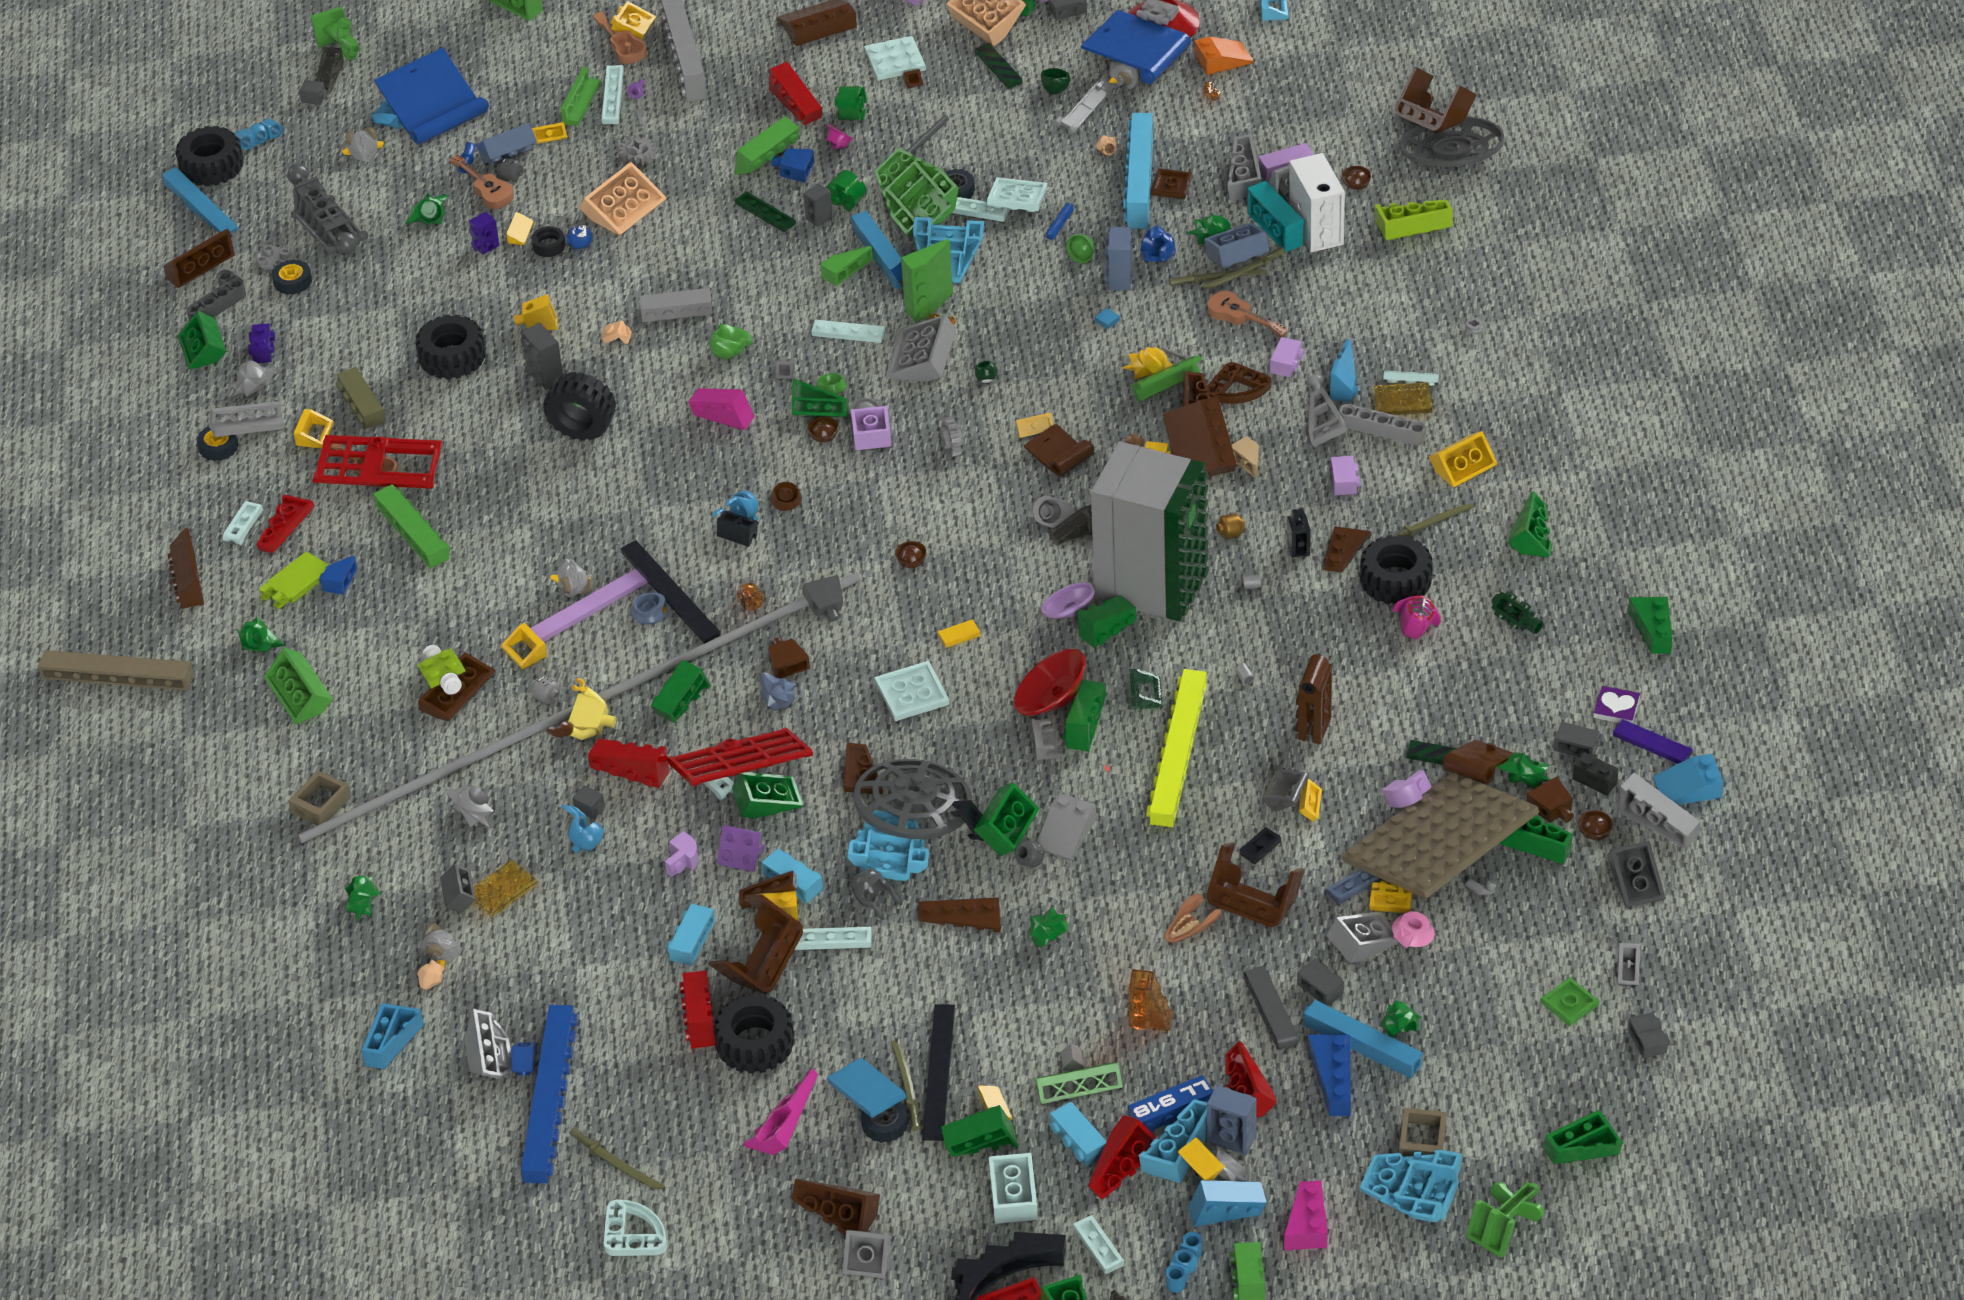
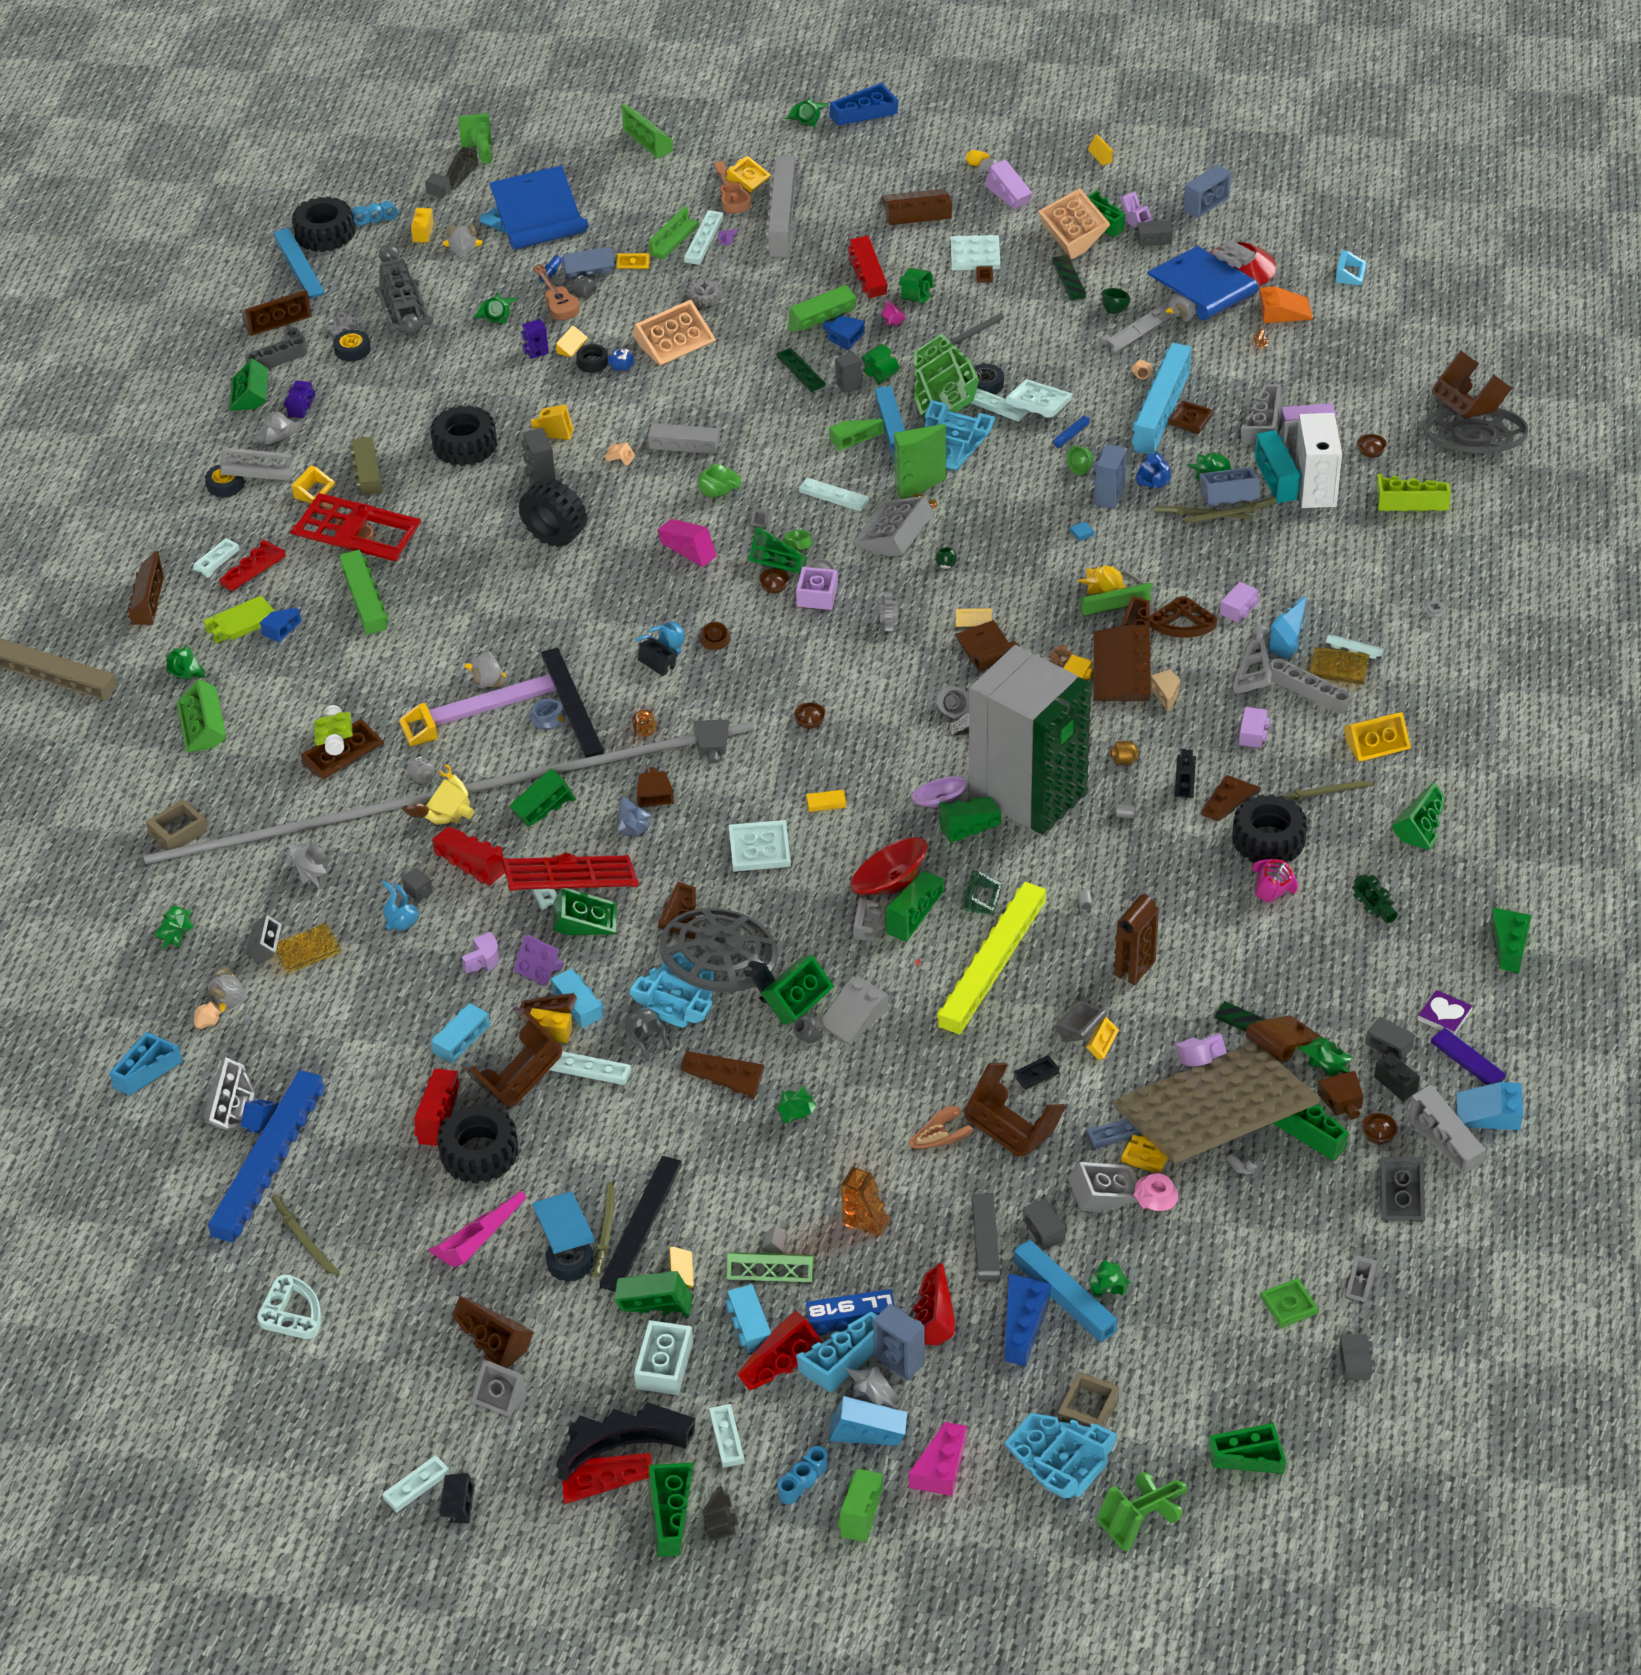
camera: 15 degrees right, 0 degrees up
(314, 137) = (422, 225): none -> yellow brick
(1201, 1159) = (852, 1375): yellow slope -> none
(1228, 307) = (1201, 543): nougat piece -> none

